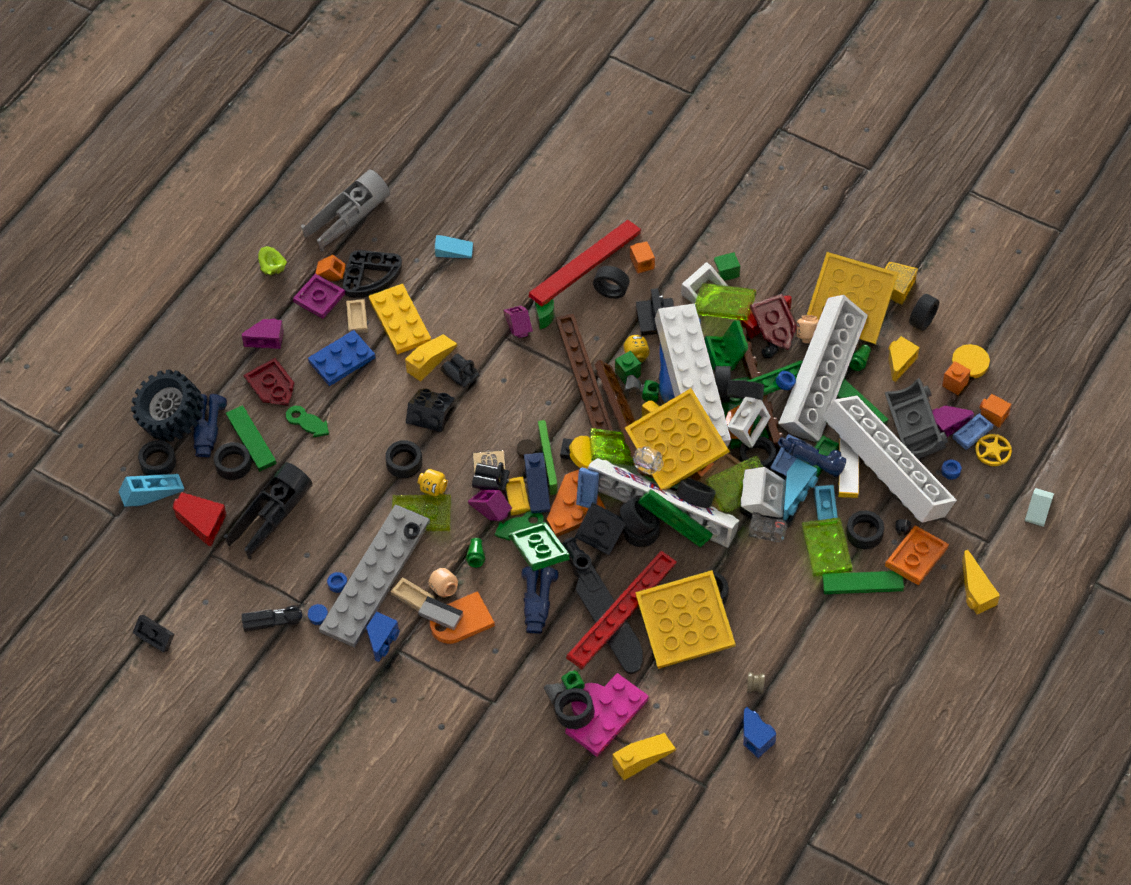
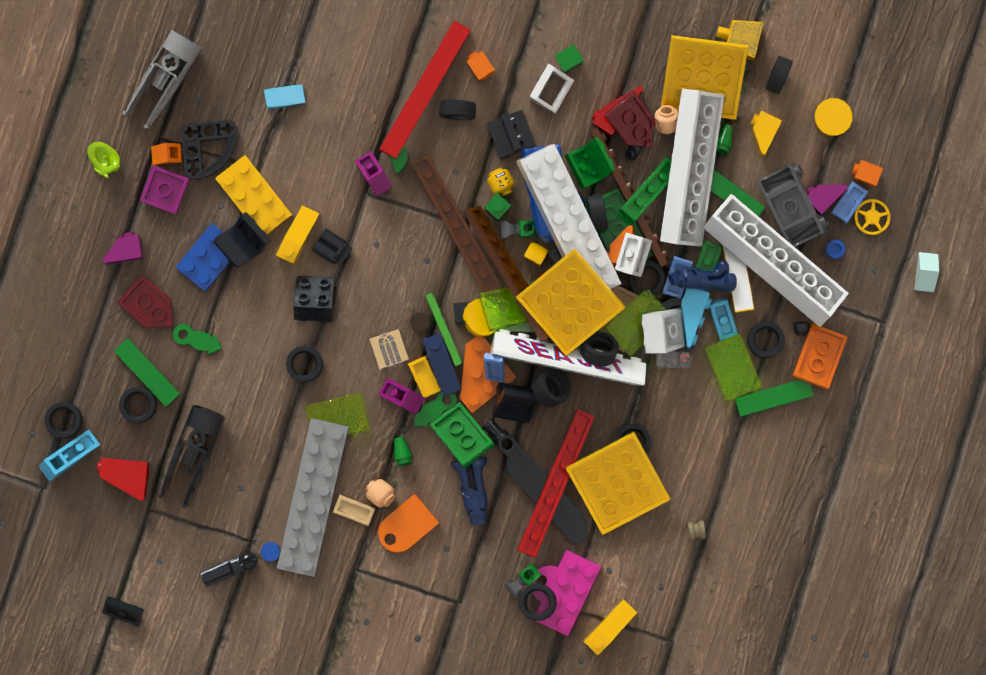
camera: 15 degrees left, 30 degrees up
(167, 405) = (56, 382): black wheel -> none
(206, 432) = (100, 378): dark blue piece -> none
(337, 582) = (278, 512): blue tile -> none
(357, 316) = (209, 203): tan tile -> none
(381, 347) = (242, 241): none -> black bracket
(381, 633) = (336, 561): blue slope -> none
(416, 529) = (340, 450): black hinge -> none
(432, 482) = (340, 386): yellow head -> none
(440, 613) = (387, 527): light grey tile -> none
(490, 477) = (395, 367): black piece -> none
(648, 460) = (548, 334): clear head -> none
(675, 518) = (585, 380): green tile -> none
(725, 301) = (577, 109): clear neon green tile -> none
(742, 389) = (624, 226): black tyre -> none
(756, 734) = (706, 583): blue slope -> none
(785, 380) = (658, 193): blue tile -> none
(956, 378) = (823, 144): orange brick -> none
(978, 588) = (882, 379): yellow slope -> none

